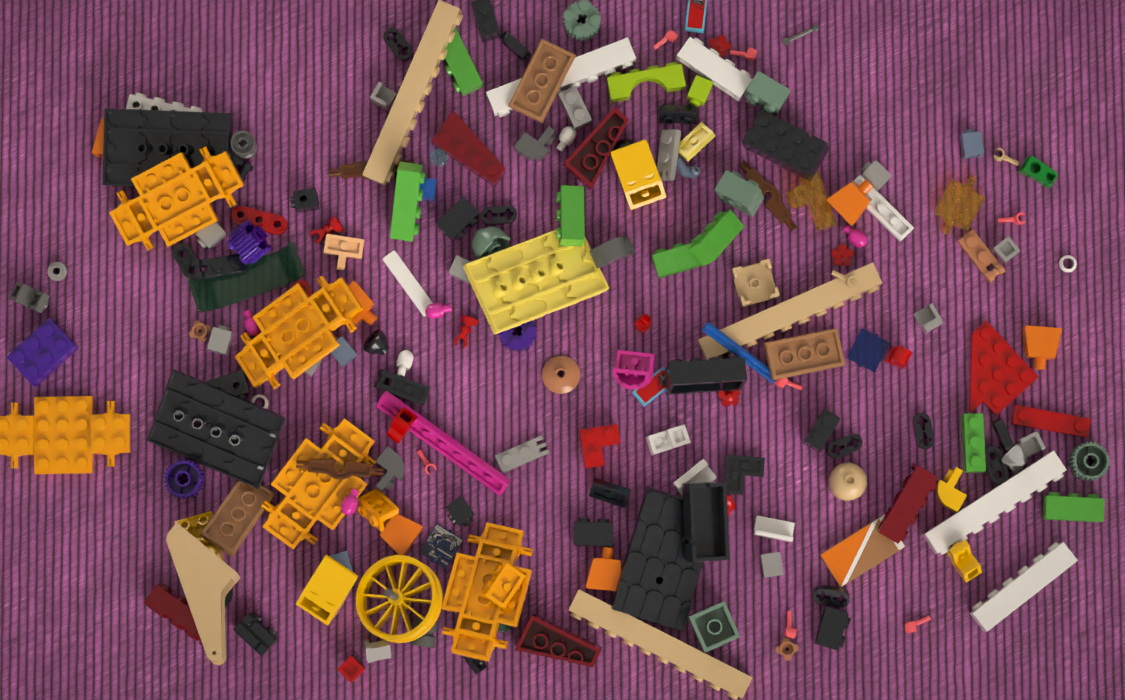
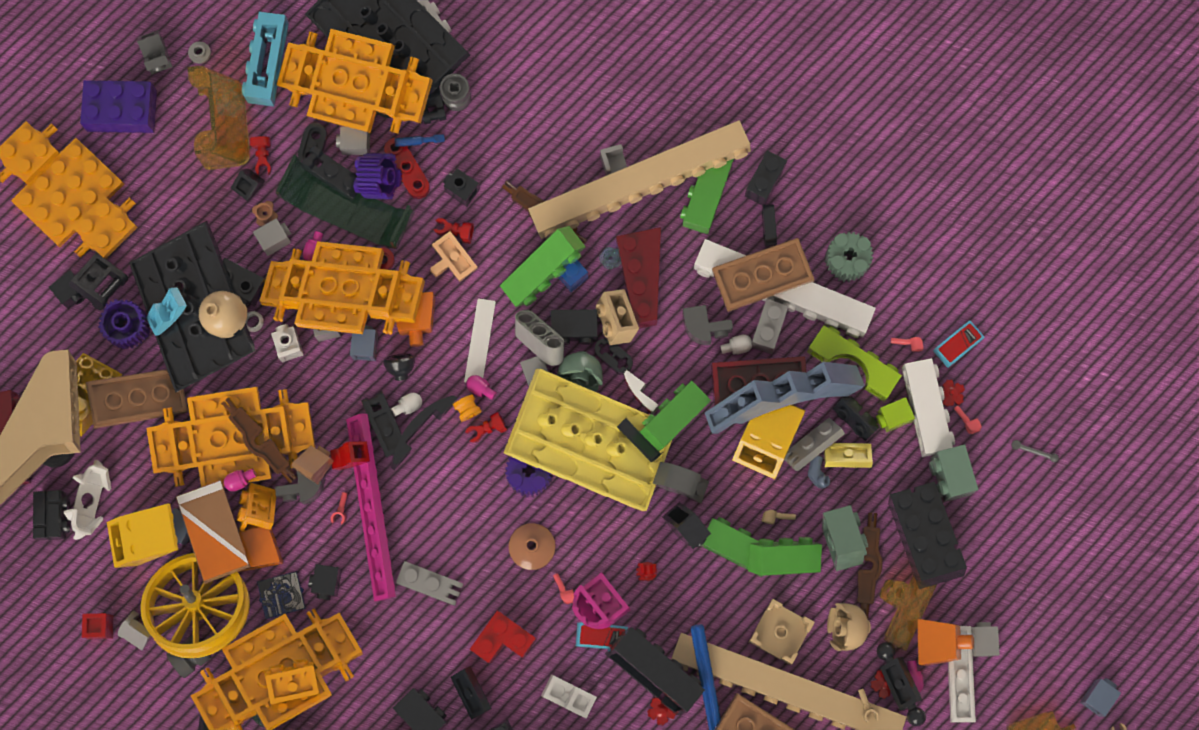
camera: 50 degrees right, 5 degrees down
(86, 210) = (266, 25): none -> medium azure brick
(128, 490) = (64, 292): none -> black brick
(136, 309) = (228, 139): none -> clear yellow windscreen
(136, 469) = (92, 275): none -> black plate
(155, 291) = (261, 143): none -> red piece
(170, 324) = (247, 184): none -> black slope
(205, 446) = (166, 313): none -> medium azure slope
(243, 413) = (222, 314): none -> tan cylinder
(250, 196) = (418, 140): none -> blue piece
(261, 590) = (91, 482): none -> white piece
(300, 399) = (292, 348): none -> white brick
(366, 547) = (212, 531): none -> tile
(387, 449) = (313, 463): none -> medium nougat slope
(400, 42) = (664, 129): black beam -> none
(429, 391) = (437, 409): none -> black slope
(442, 330) = (467, 408): none -> light orange wheel
(445, 246) = (539, 337): none -> light grey beam
(479, 189) = (616, 317): none -> tan brick
(530, 221) = (636, 387): none -> white slope
(571, 251) = (639, 440): none -> black piece
(611, 382) = (566, 596): none -> coral hand
(626, 133) = (791, 388): none -> sand blue arch
(641, 274) = (686, 525): none -> black piece
(683, 221) = (770, 515): none -> tan hand
(790, 242) = (848, 627): none -> tan cylinder
(852, 246) = (901, 684): none -> black plate

